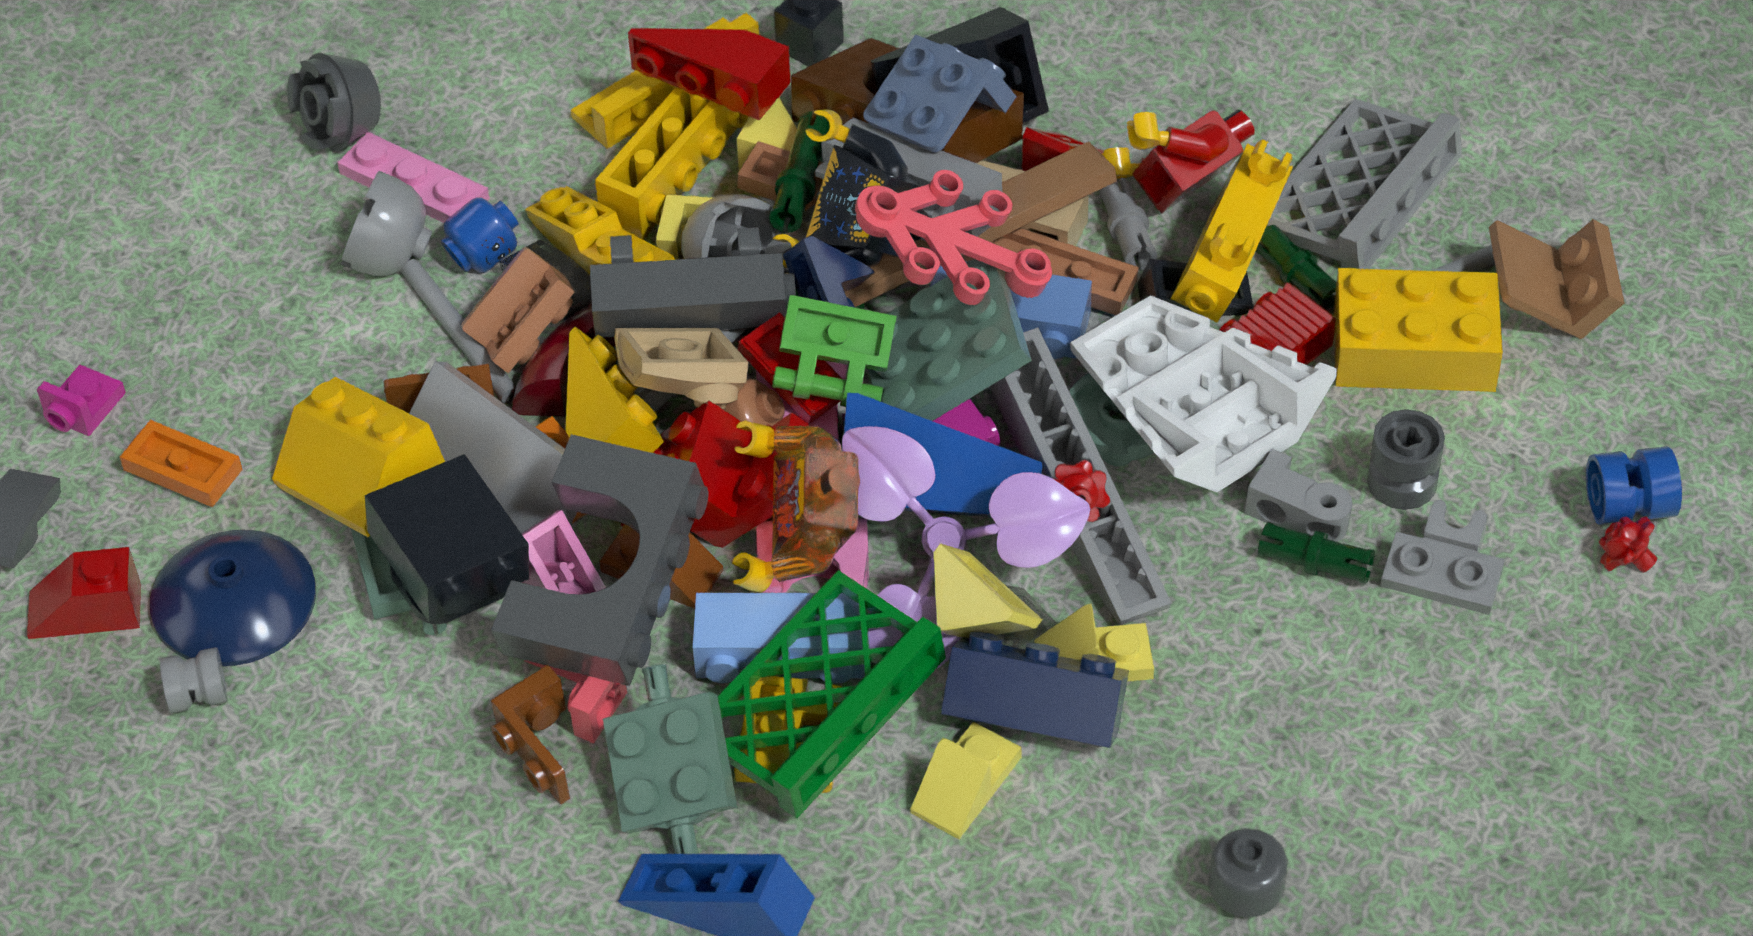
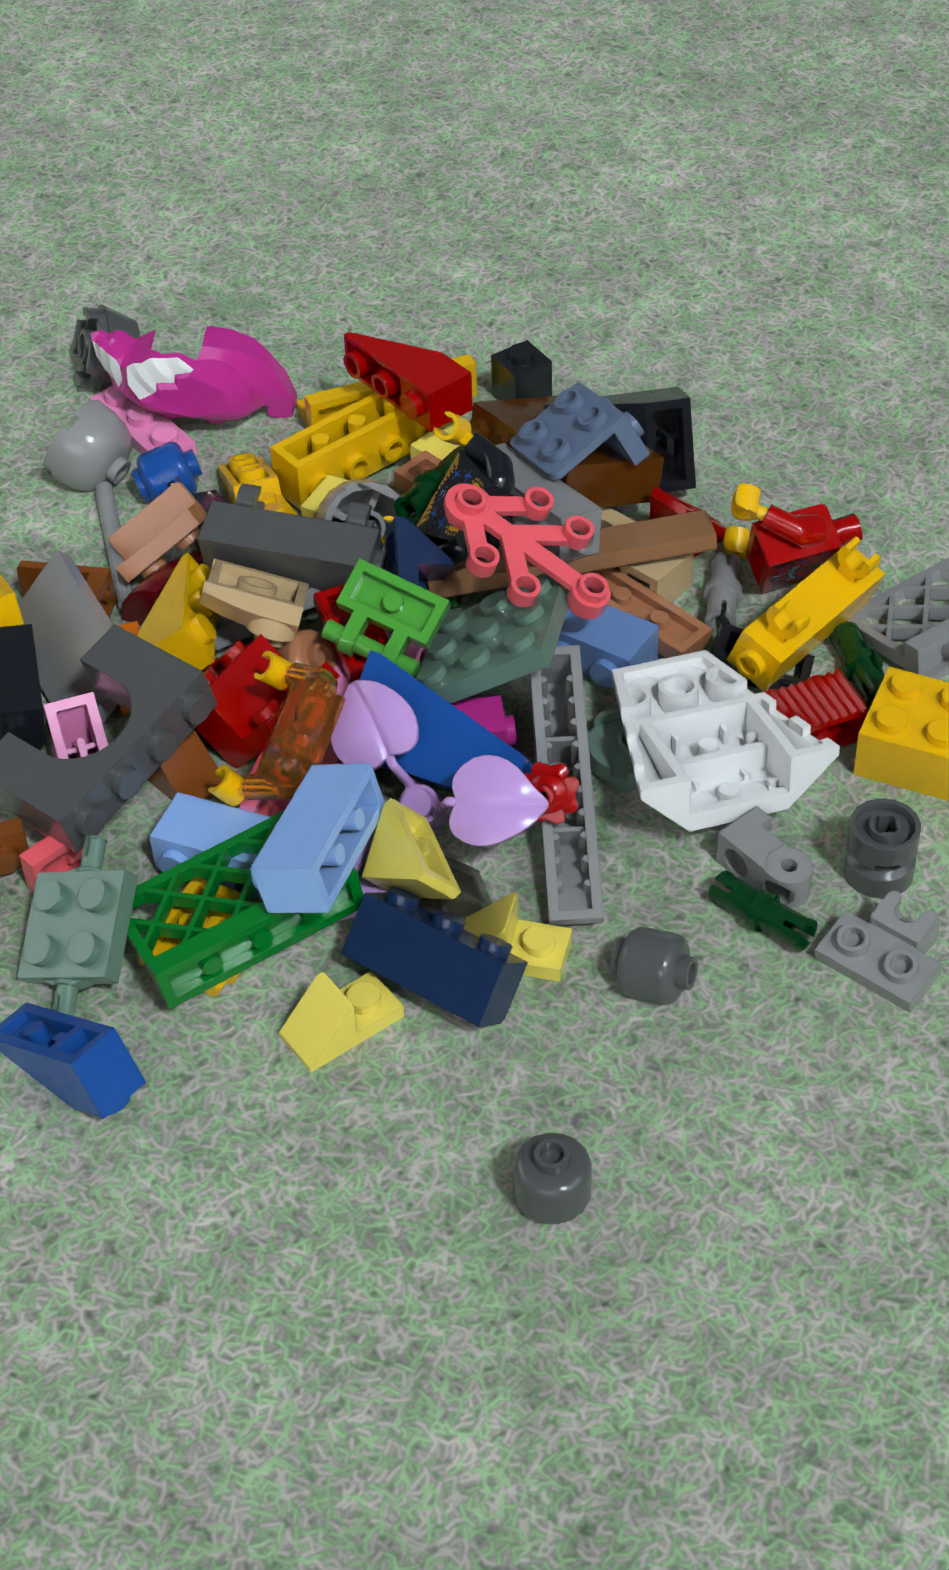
camera: 20 degrees right, 5 degrees down
(506, 113) = (222, 385): none -> dark pink animal
(892, 606) = (318, 839): none -> light blue brick
(1242, 638) = (653, 965): none -> dark grey head

